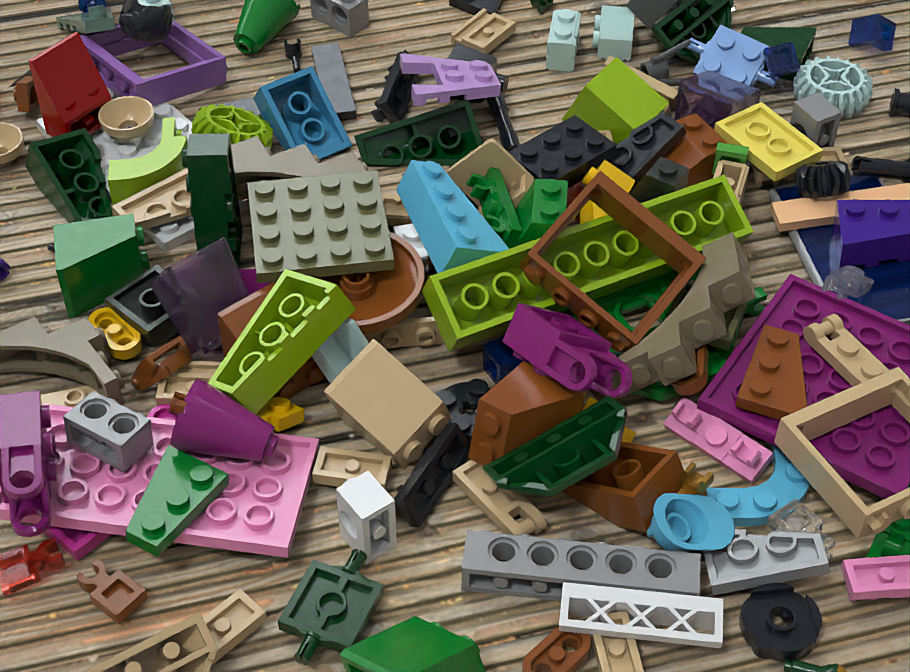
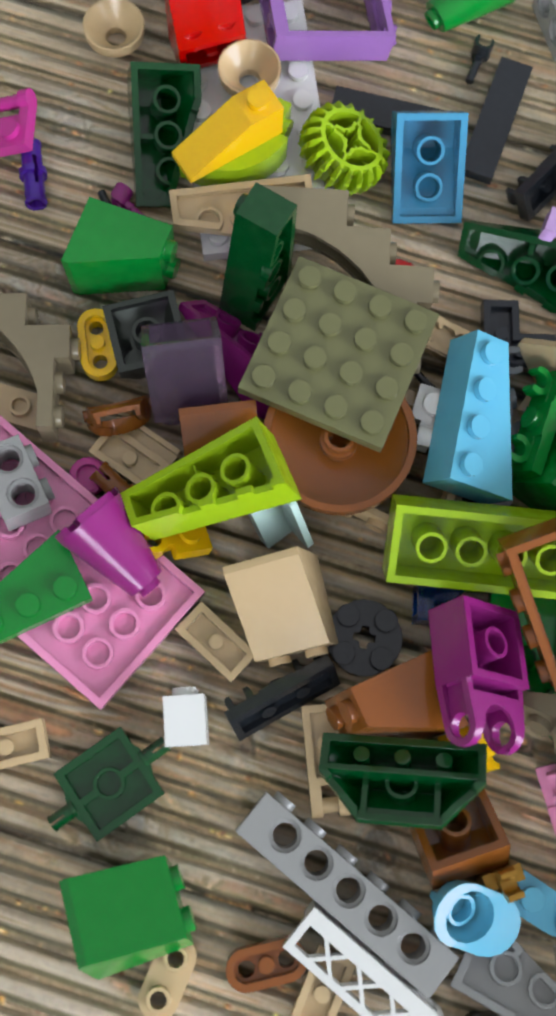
camera: 25 degrees right, 30 degrees up
(142, 142) = (231, 131): none -> yellow slope

